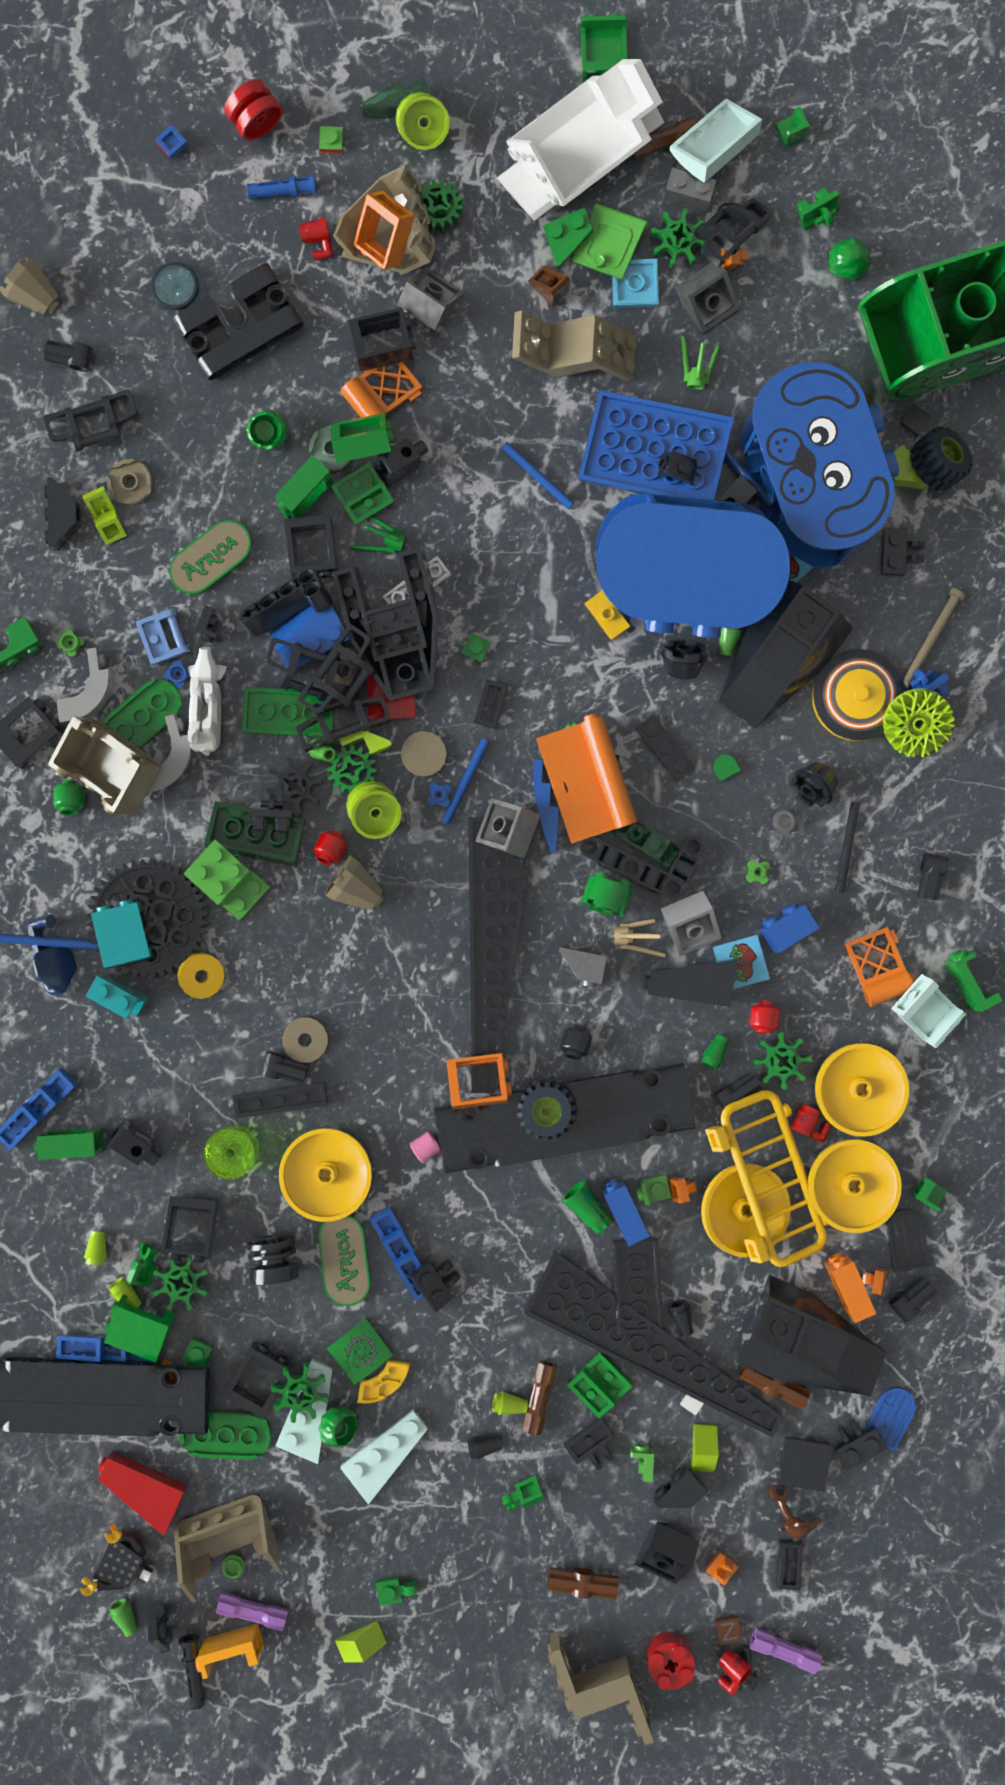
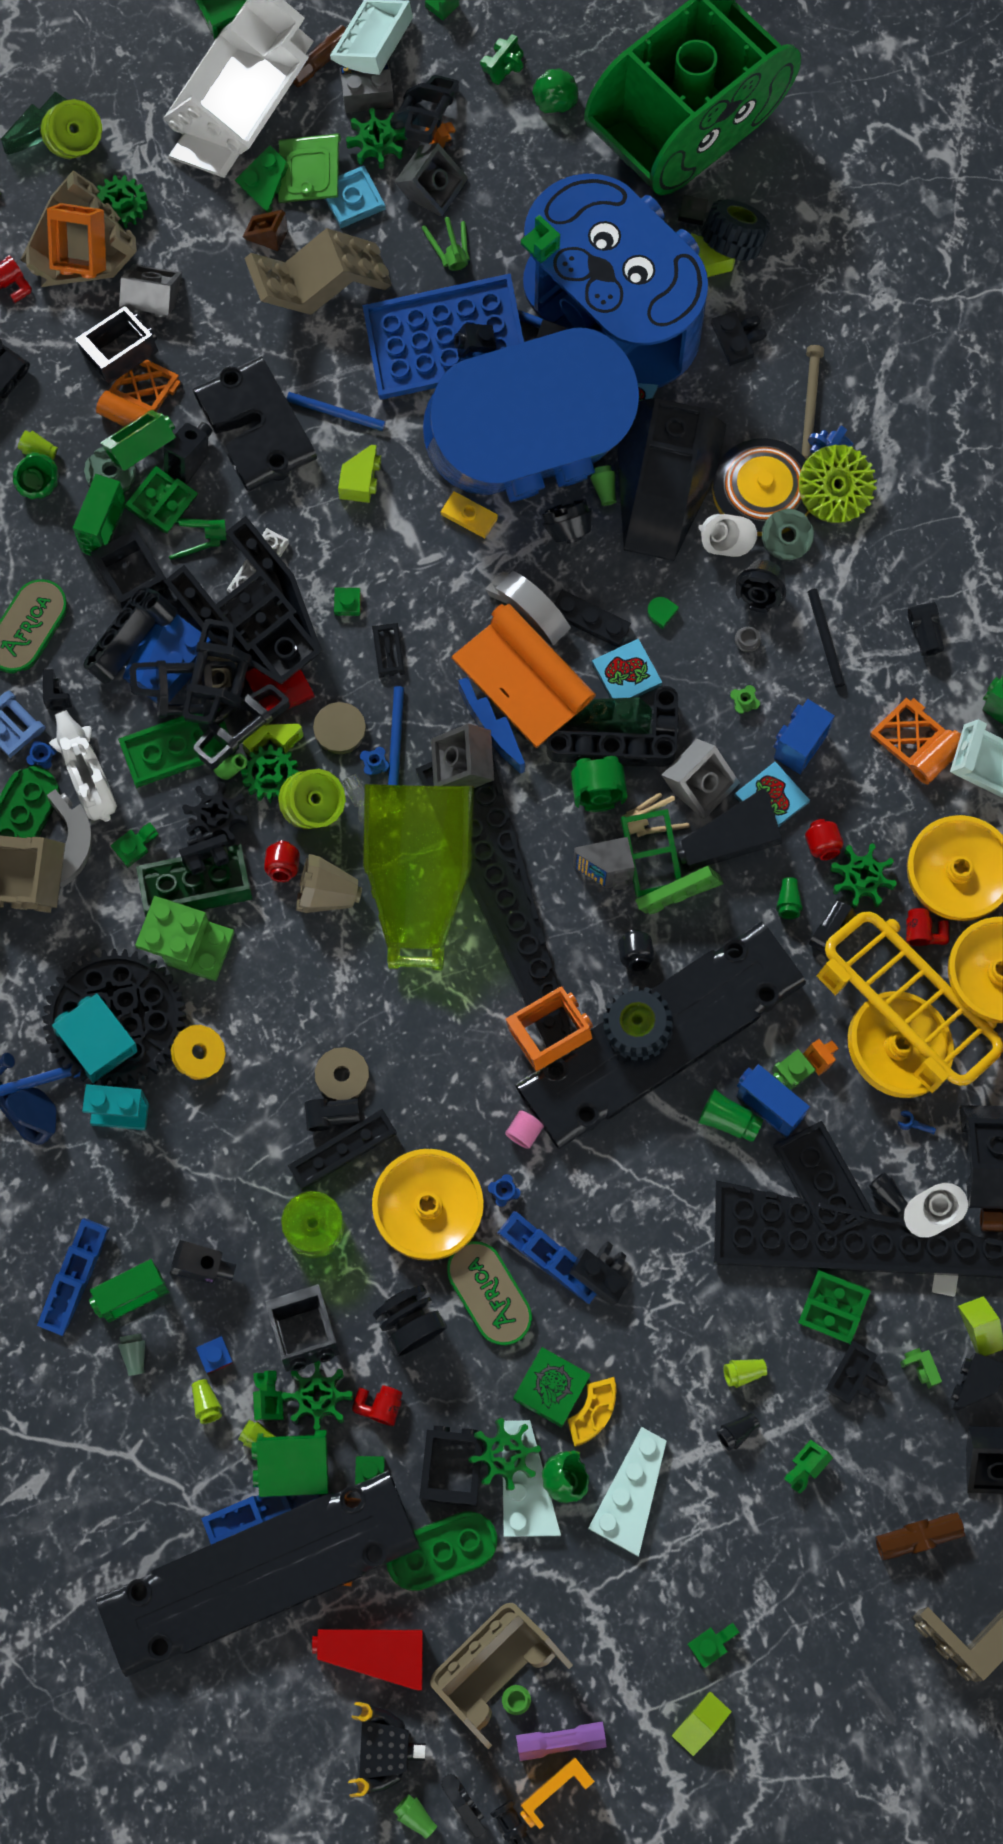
camera: 25 degrees left, 15 degrees down
(57, 1186) = (133, 1353): none -> sand green cone
(118, 1215) = (214, 1355): none -> blue plate
(219, 782) = (131, 846): none -> green plate
(228, 1312) = (384, 1408): none -> red piece
(279, 401) = (34, 442): none -> lime cone
(394, 1190) = (502, 1198): none -> blue plate
(434, 901) = (417, 864): none -> clear neon green windscreen
(472, 436) = (249, 400): none -> black connector
(530, 543) = (358, 474): none -> lime slope
(539, 1399) = (778, 1367): reddish brown axle -> none
(619, 718) = (530, 604): none -> light grey arch
(630, 1012) = (679, 890): none -> bright green wing
(640, 972) = (671, 848): none -> green window
(673, 807) = (627, 671): none -> medium azure tile
(710, 1350) = (935, 1209): none -> white piece
(729, 1273) = (915, 1124): none -> blue hand
(766, 414) = (541, 240): none -> green panel
(808, 726) = (728, 535): none -> white piece
(854, 734) = (773, 539): none -> sand green tile

